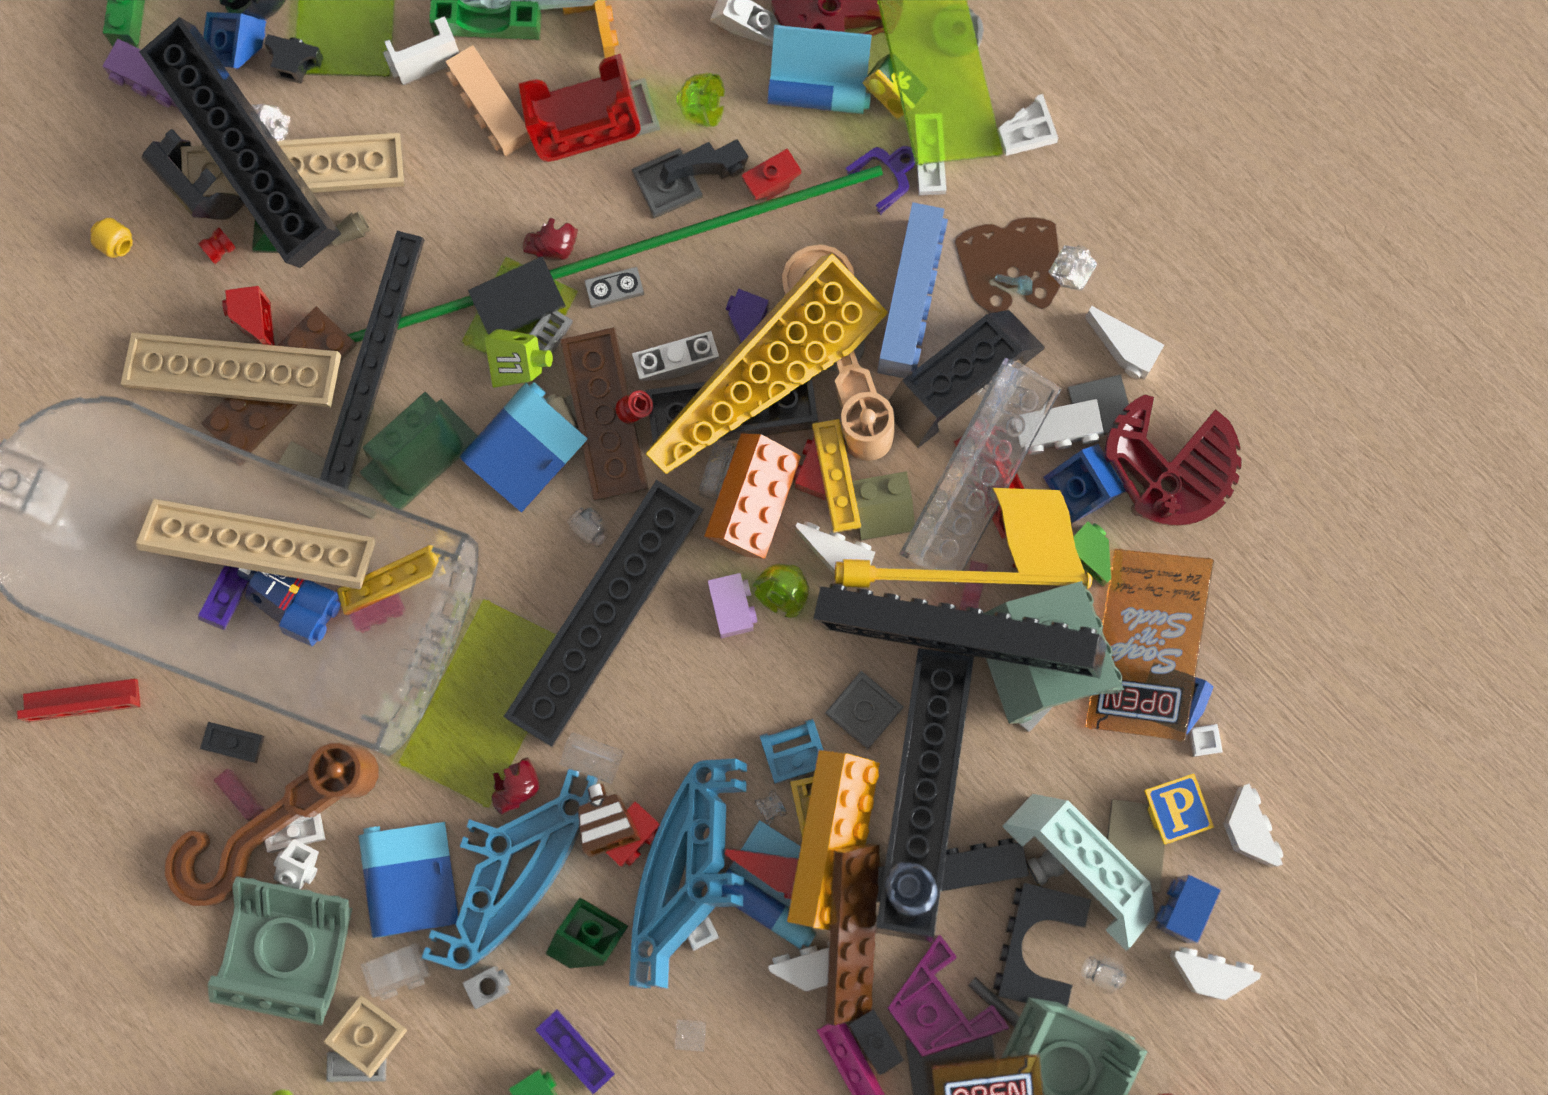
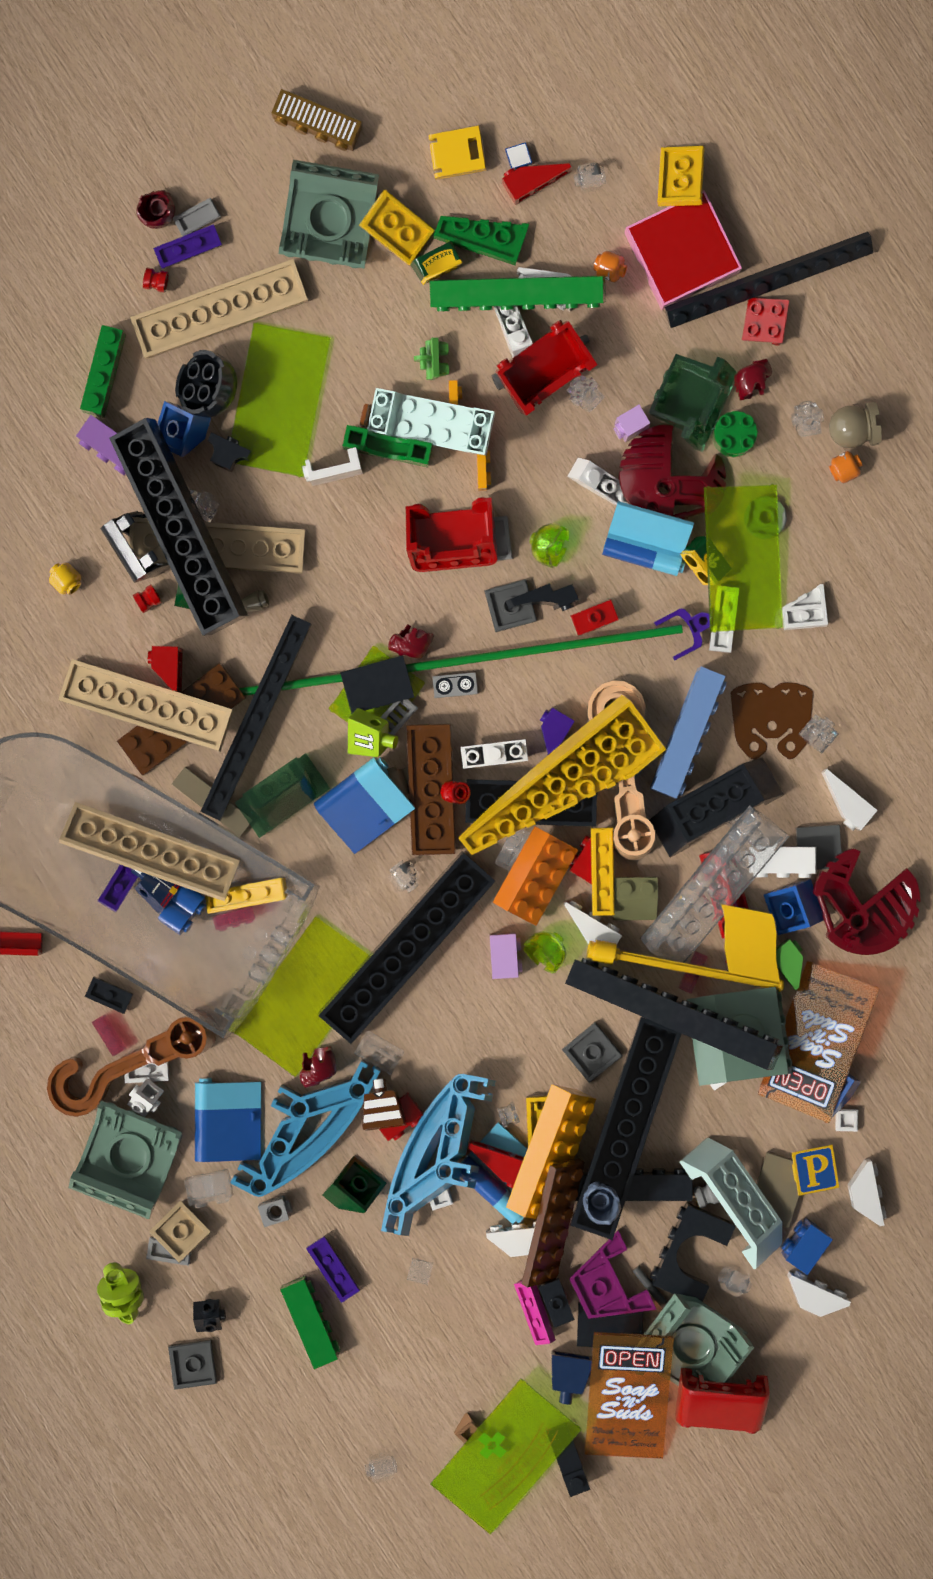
camera: 10 degrees right, 10 degrees up
(488, 100) = (379, 514): light nougat brick -> none
(795, 760) = (532, 1082): dark azure plate -> none
(1024, 283) = (778, 739): clear light blue hand -> none

